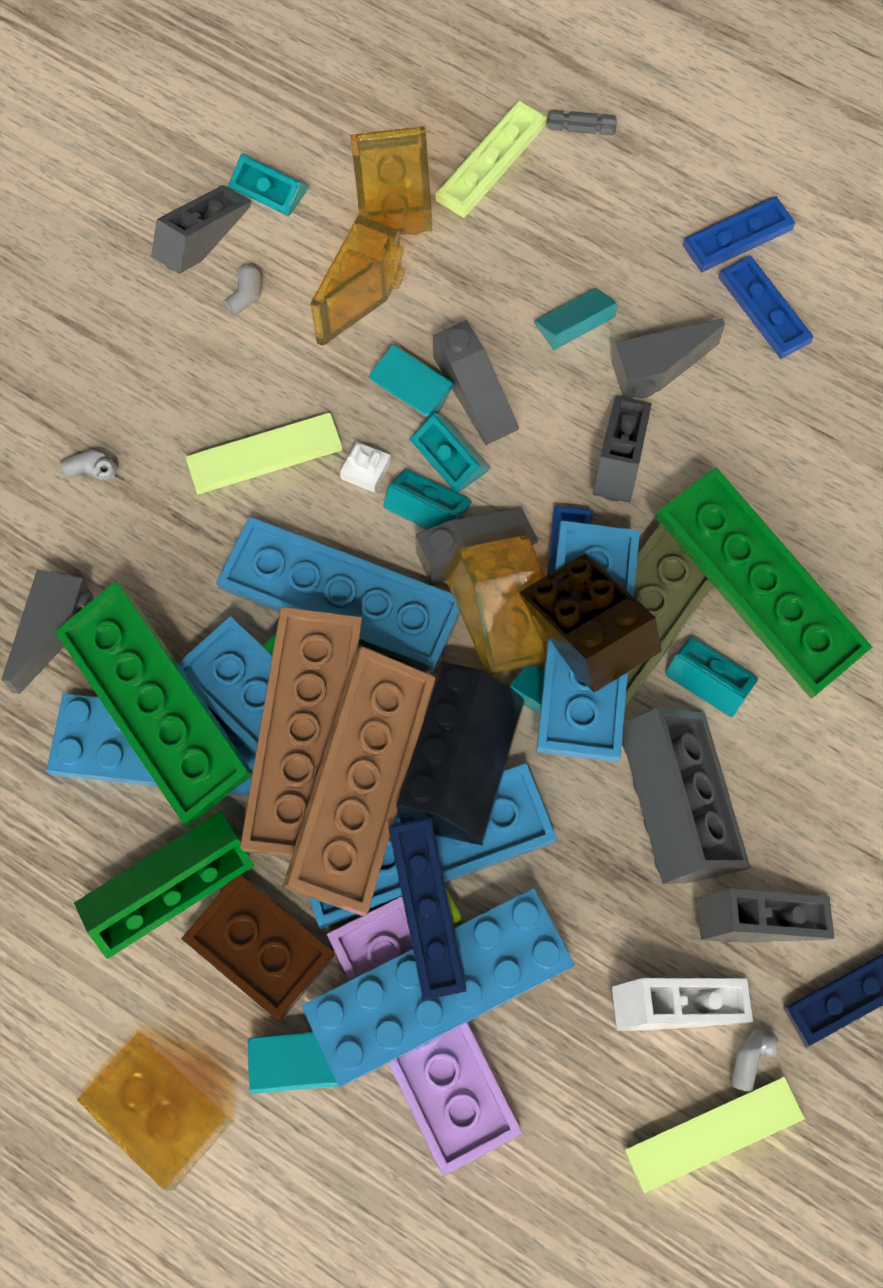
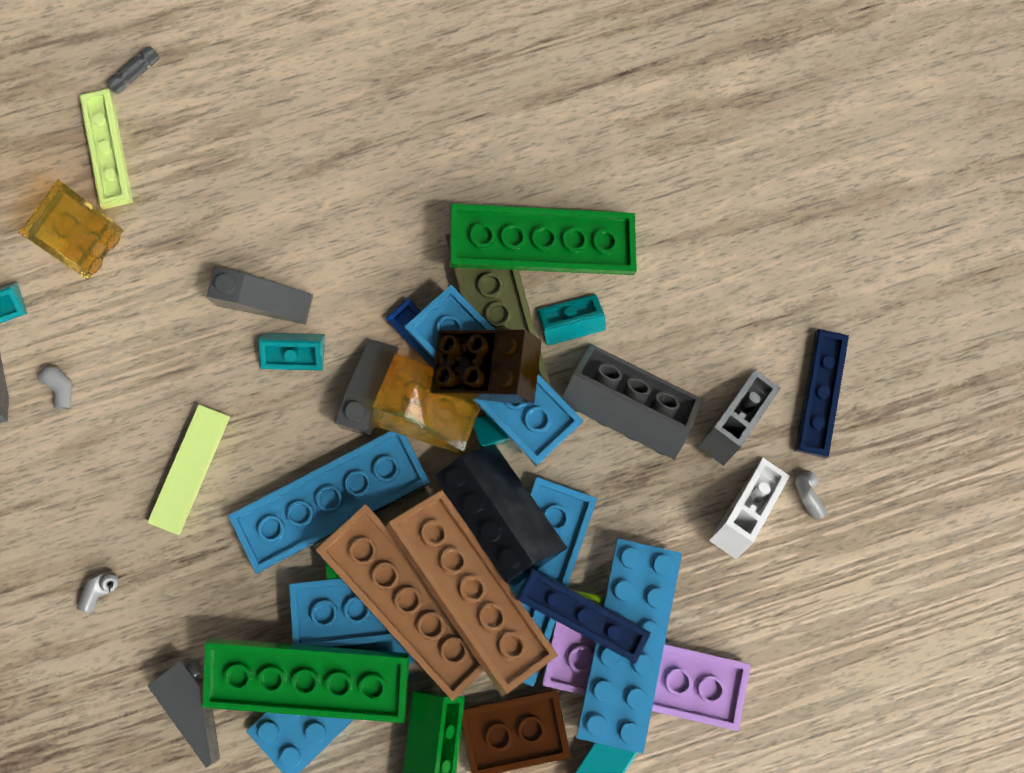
camera: 50 degrees left, 10 degrees up
(358, 278) = (121, 308): clear yellow slope -> none
(365, 467) = (255, 412): white tile -> none
(412, 381) = (223, 335): teal slope -> none
(424, 500) = (313, 394): teal slope -> none
(576, 318) = (268, 194): teal slope -> none
(622, 449) = (384, 245): dark grey slope -> none
(655, 360) = (342, 175): dark grey slope -> none
(713, 1135) = (833, 553): yellowish green tile -> none
(738, 234) = (301, 46): blue tile -> none
(766, 307) = (364, 75): blue tile -> none

